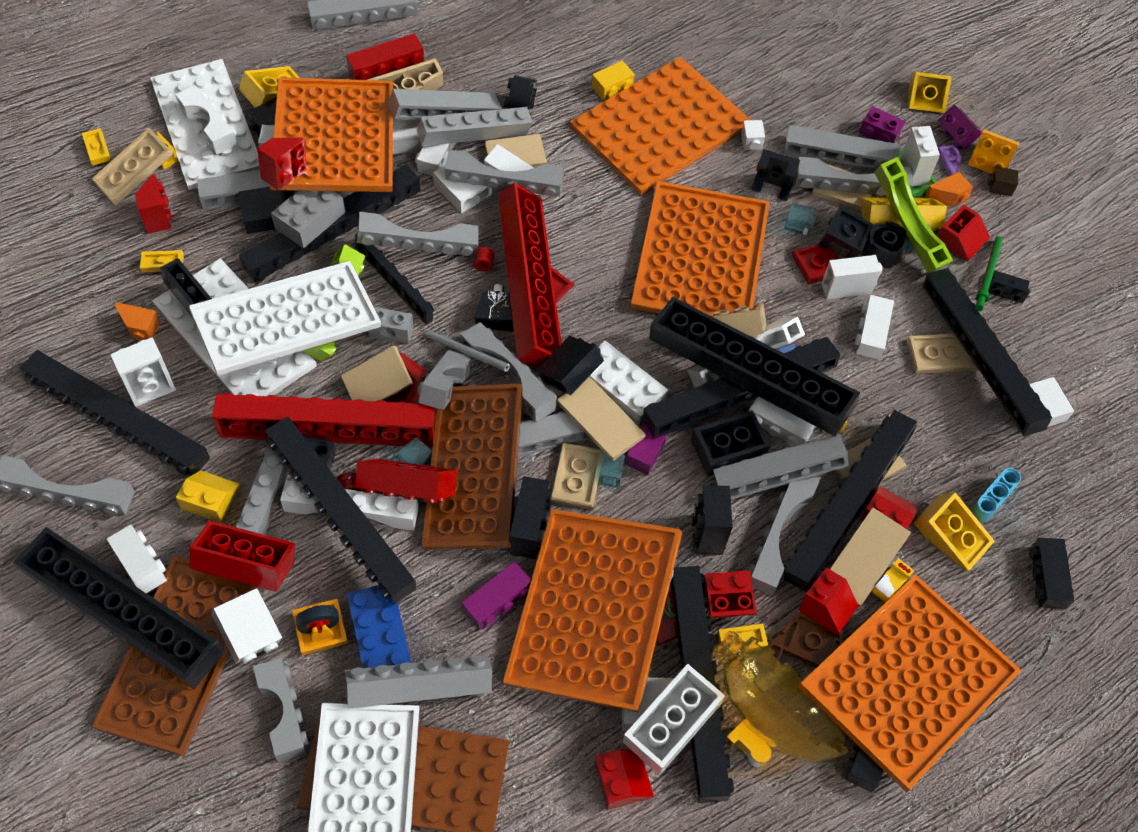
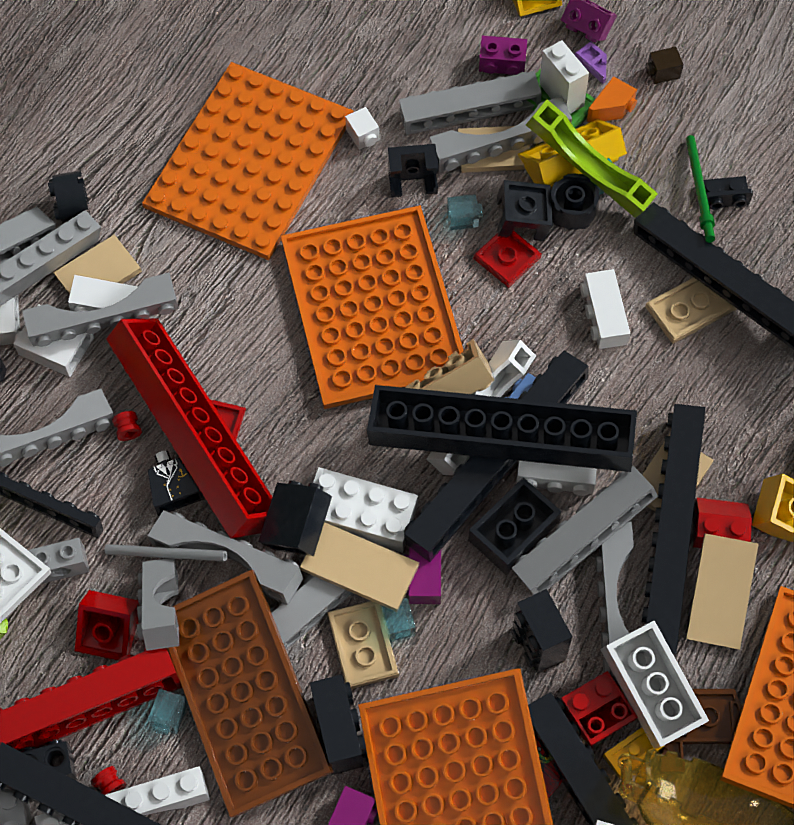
camera: 20 degrees left, 5 degrees up
(378, 377) = (78, 638): tan tile -> none
(406, 479) = (175, 749): red brick -> none
(612, 80) = (167, 128): yellow brick -> none
(780, 594) = (654, 685): none -> white brick
(830, 601) = (708, 662): red slope -> none
(851, 277) = (554, 261): white brick -> none
(892, 580) = (760, 604): yellow leg -> none
(964, 233) = (651, 150): red slope -> none
(993, 152) = (639, 35): light orange plate -> none

